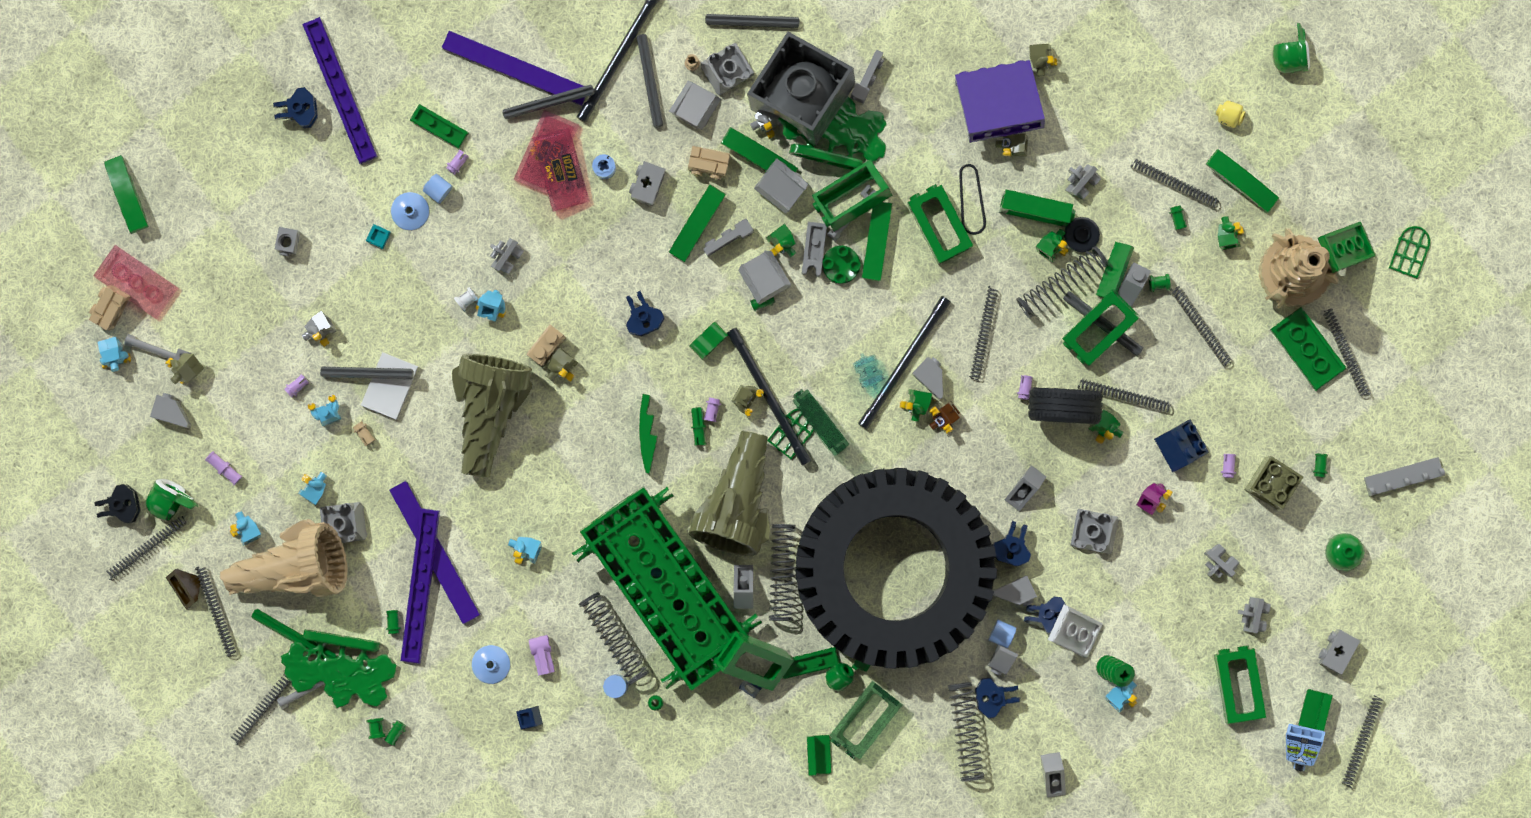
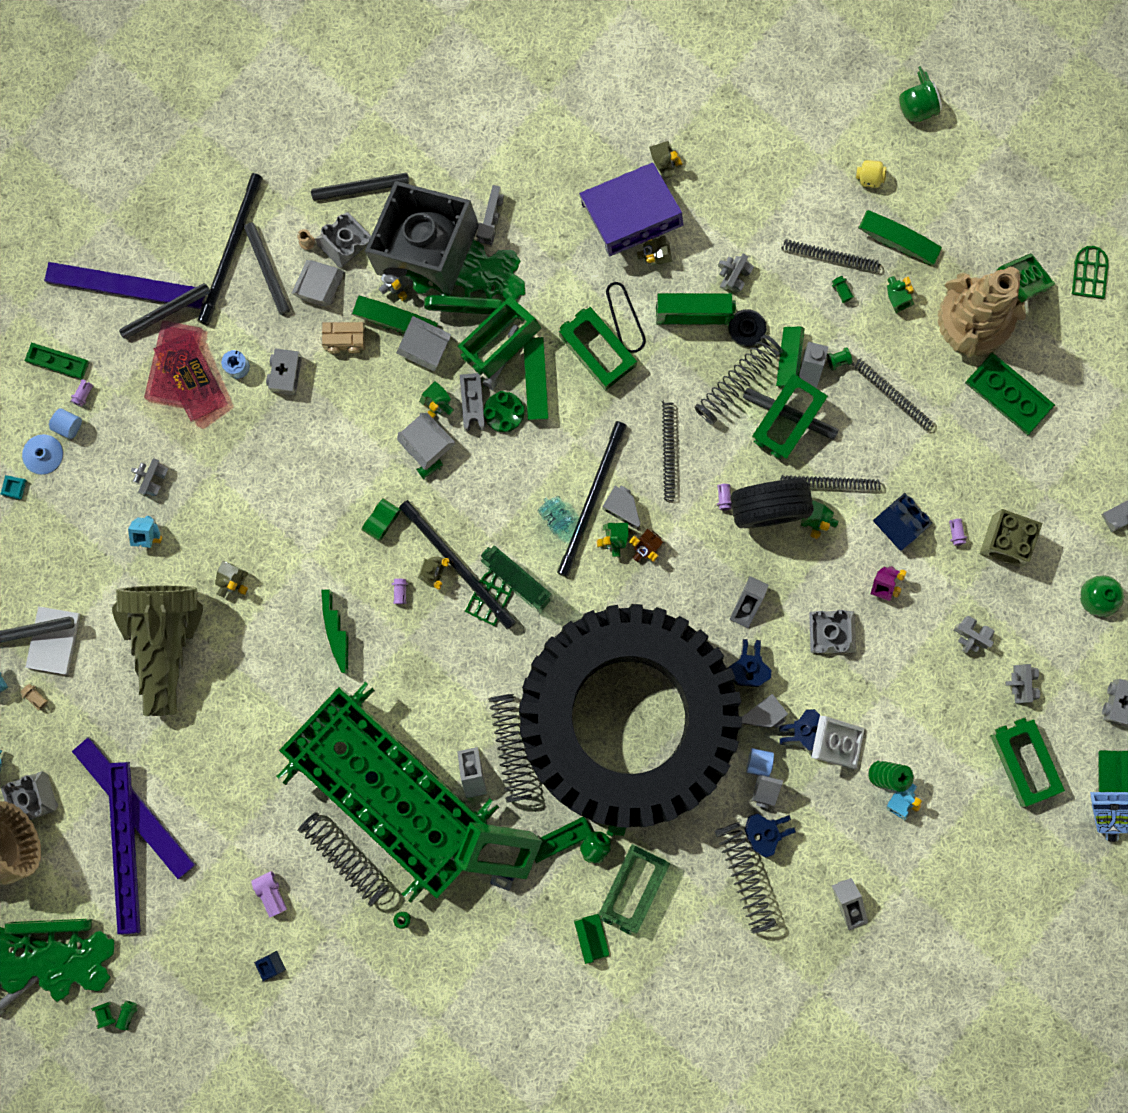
camera: 10 degrees left, 5 degrees down
(393, 622) = (101, 893): green pin -> none
(466, 299) = (117, 531): white bush -> none
(498, 657) = (227, 916): light blue dish -> none
(525, 548) = (229, 782): medium azure piece -> none
(546, 345) = (209, 561): tan brick -> none
(615, 686) = (355, 911): light blue piece -> none
(642, 315) = (305, 508): dark blue hinge -> none
(697, 223) = (344, 401): green slope -> none
(698, 426) = (389, 612): green axle -> none
(731, 515) = (442, 699): olive cone -> none
(742, 230) = (392, 398): light grey plate -> none
(1052, 244) = (717, 344): green piece -> none
(1320, 465) = (1053, 511): green pin -> none
(1348, 352) = (1052, 388): dark grey piece -> none

